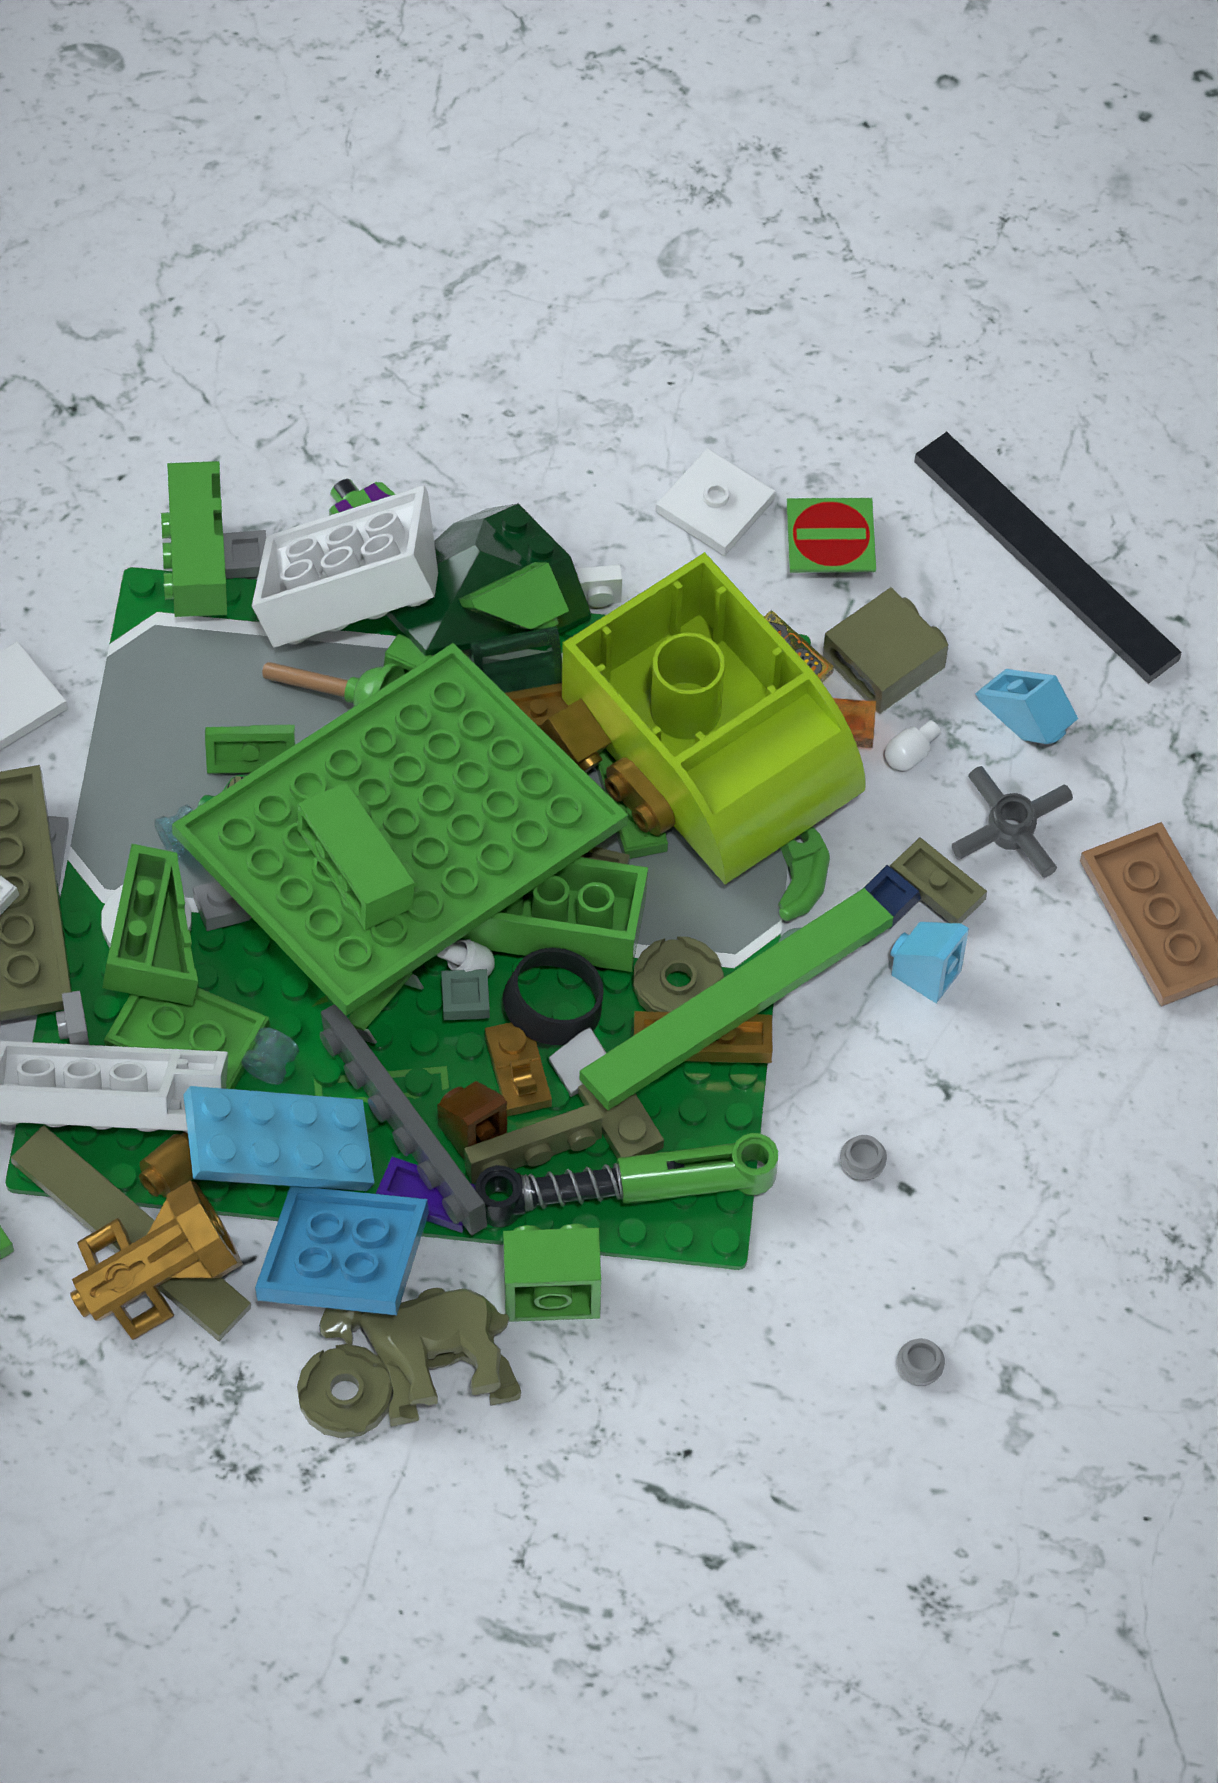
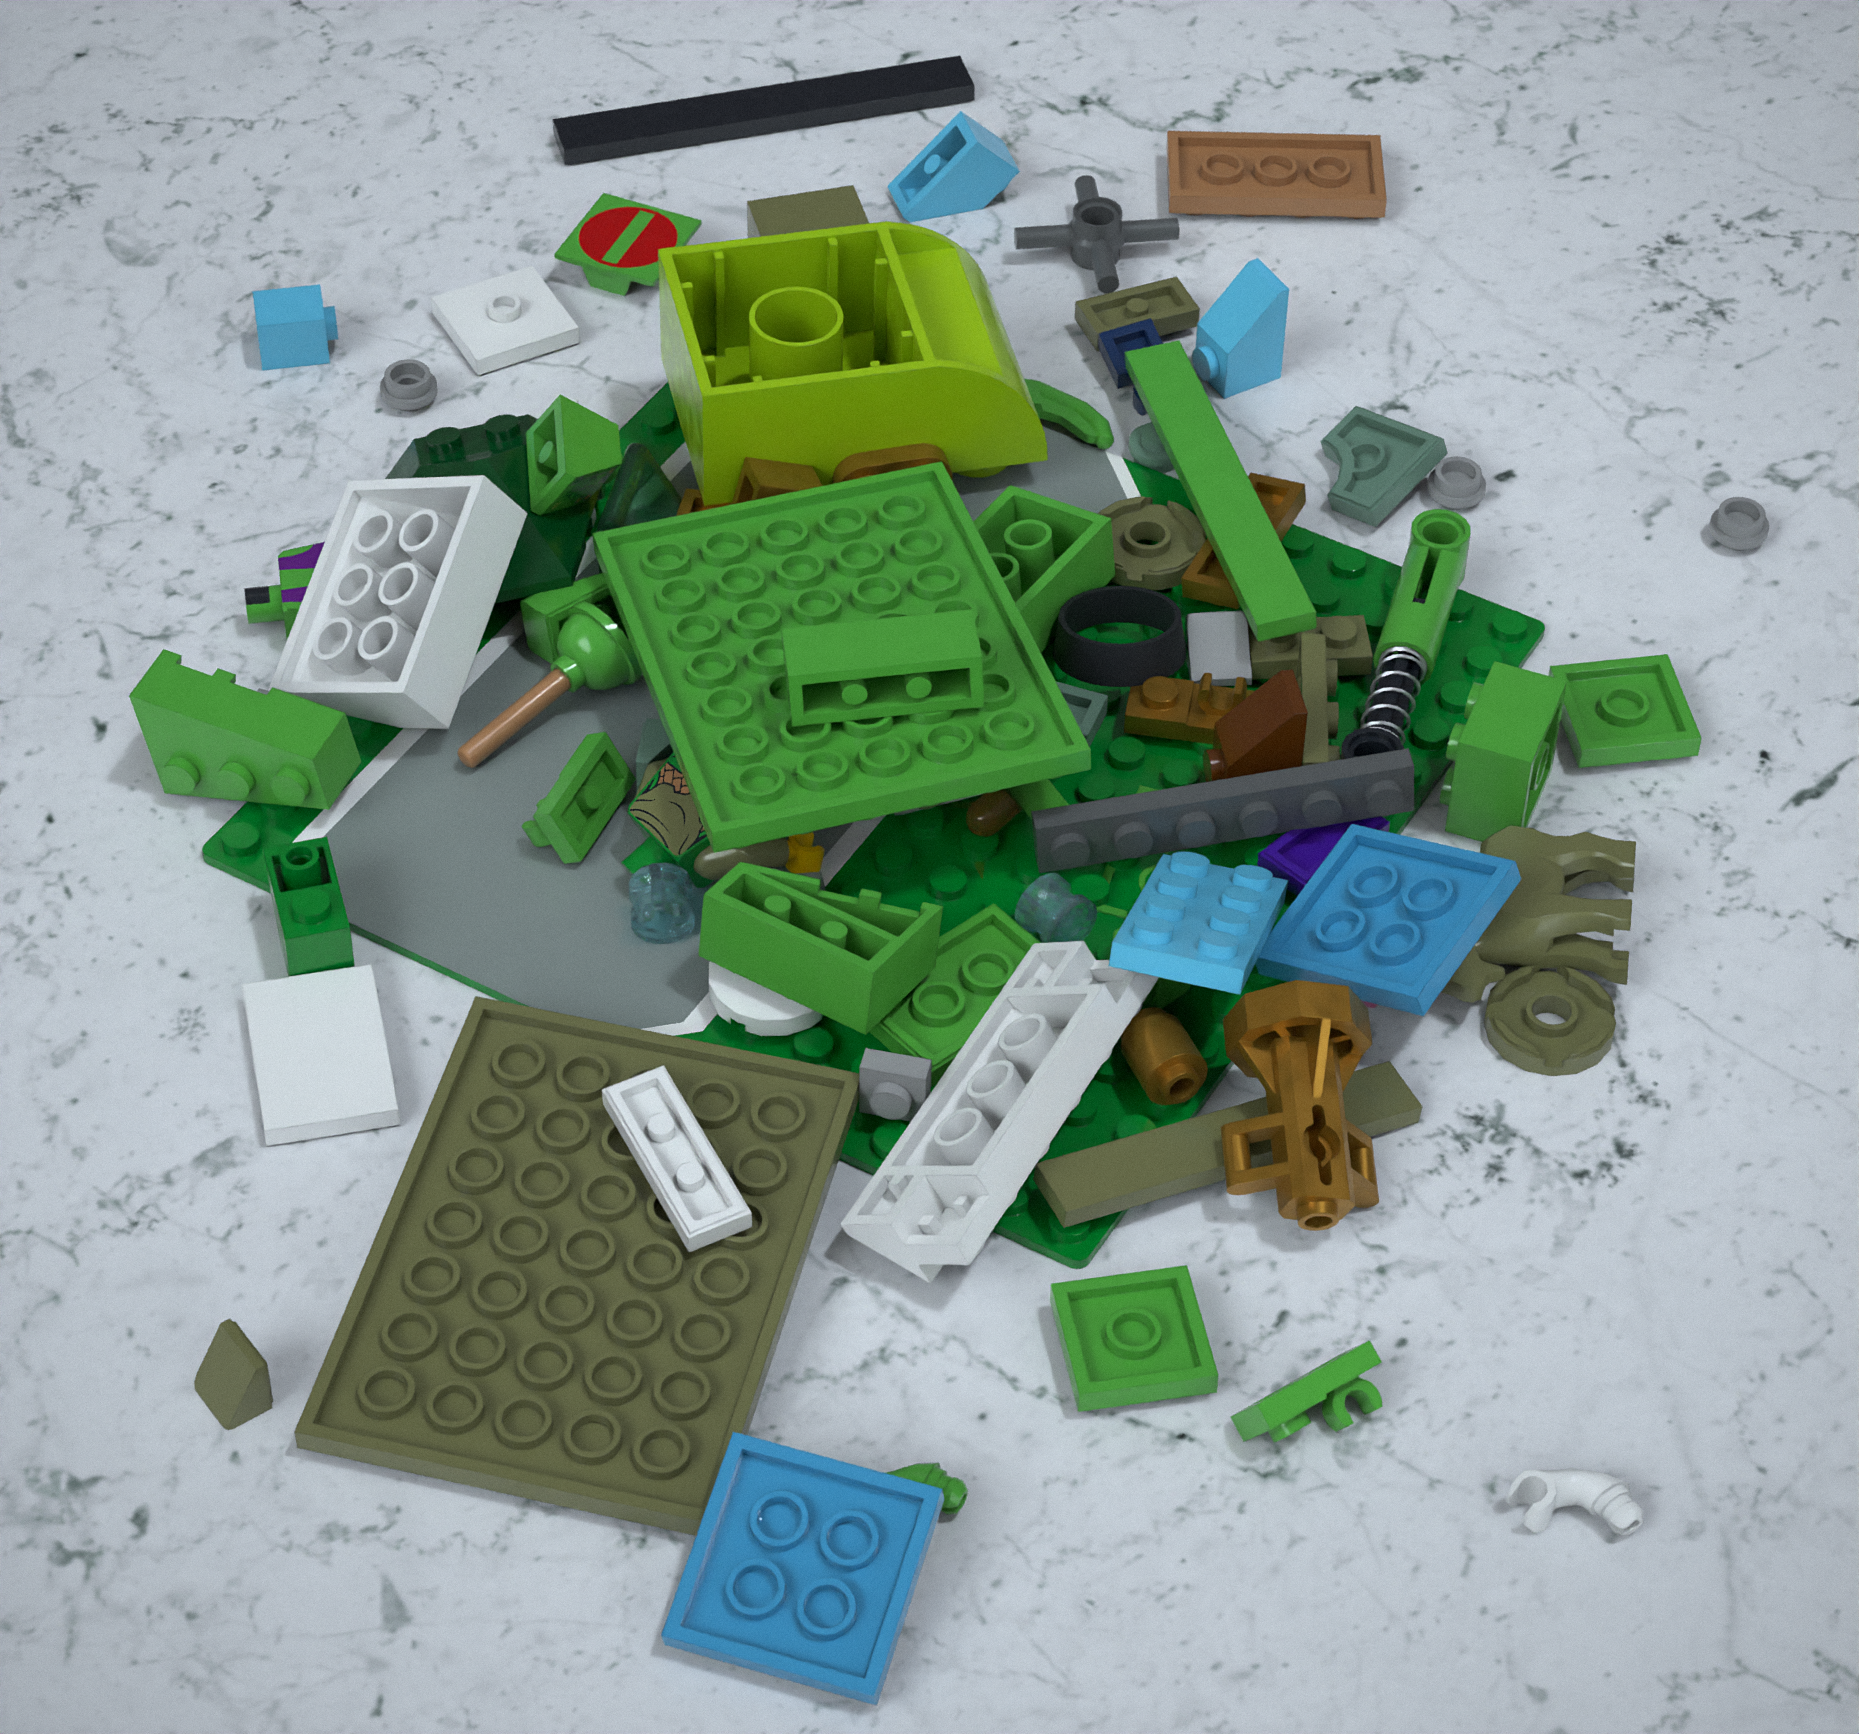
camera: 65 degrees left, 15 degrees down
(81, 647) = (308, 907): none -> green slope
(610, 468) = (408, 385): none -> light grey plate
(625, 384) = (293, 327): none -> medium azure brick
(667, 1342) = (1626, 711): none -> bright green plate
(853, 1098) = (1377, 463): none -> sand green tile

